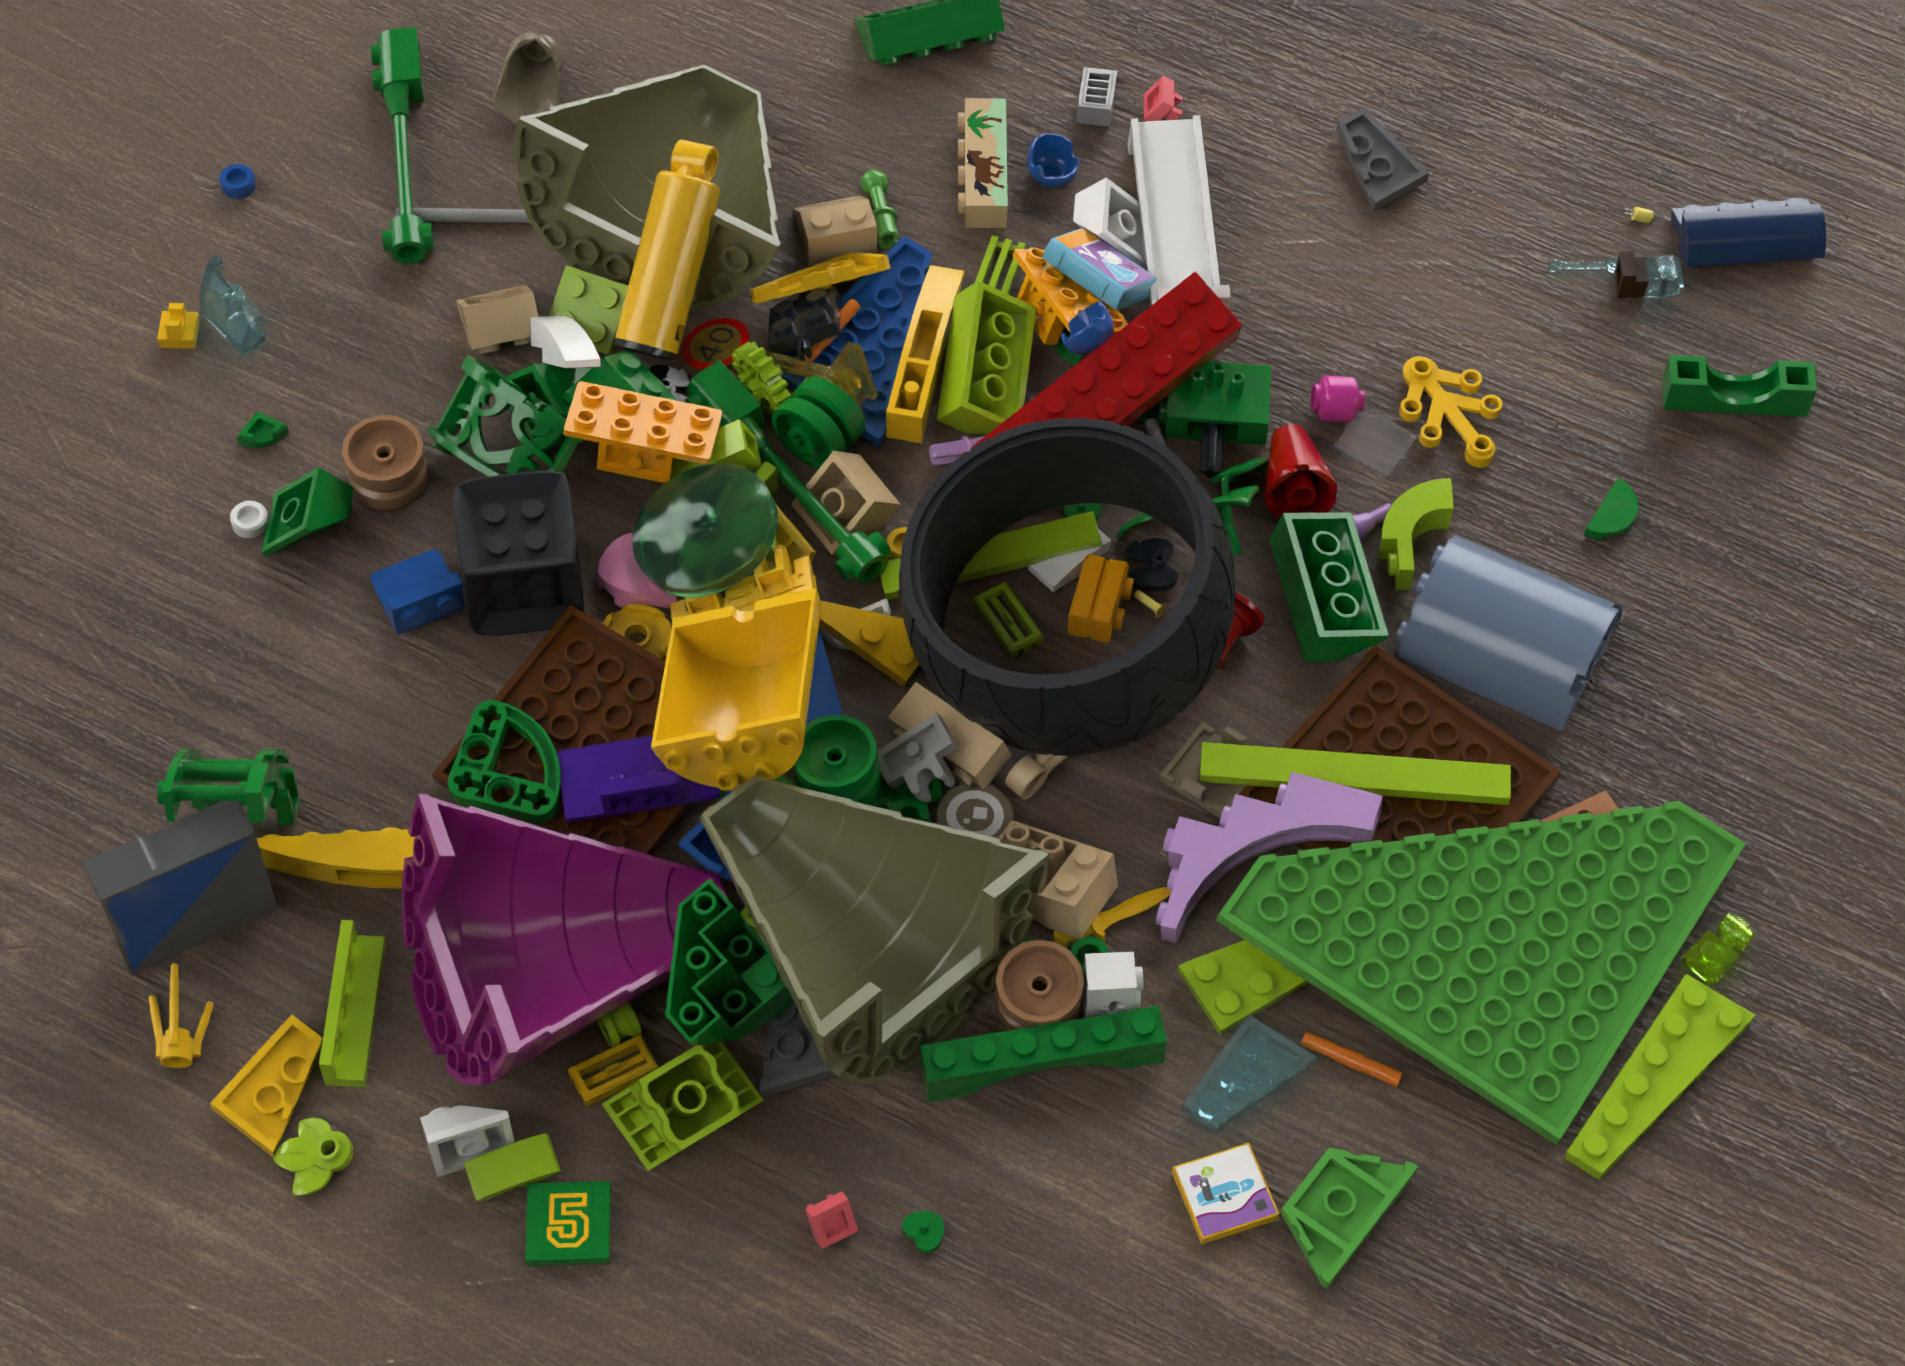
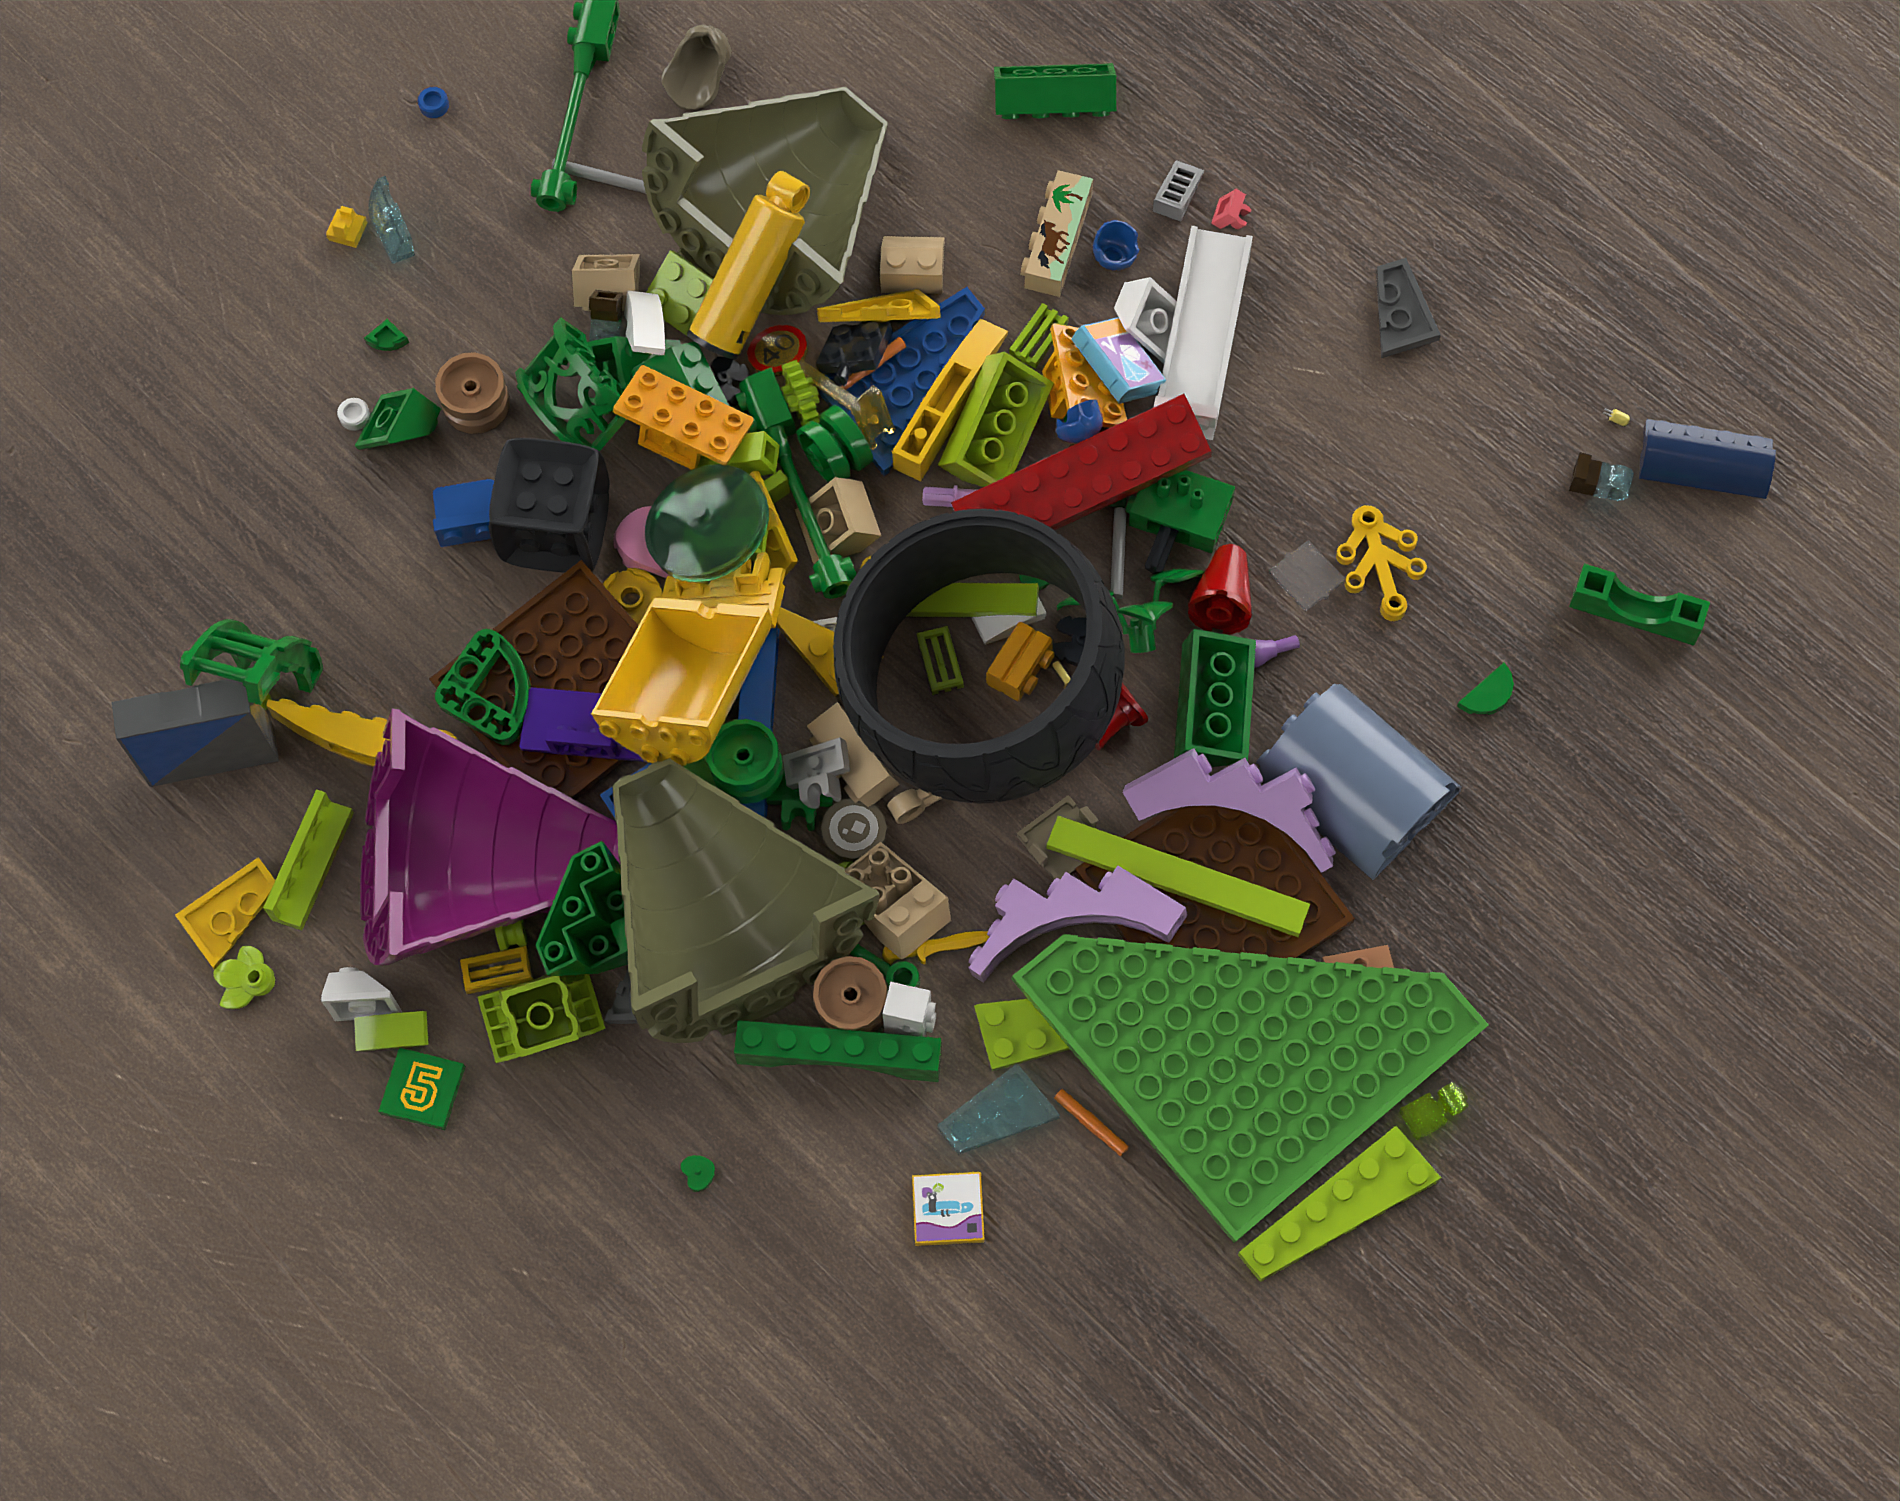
camera: 20 degrees right, 10 degrees up
(177, 1046) = (163, 856): yellow plant -> none
(512, 346) = (605, 314): none -> dark brown leg
(831, 1219) = (625, 1144): coral tile -> none
(875, 184) = (955, 265): bright green pin -> none
(1337, 399) = (1284, 529): dark pink head -> none
(1341, 1207) = (1037, 1247): bright green wing -> none
(1413, 513) = (1306, 654): lime arch -> none
(1441, 664) = (1280, 801): none -> lavender arch
(1555, 265) = (1523, 447): clear light blue hinge -> none

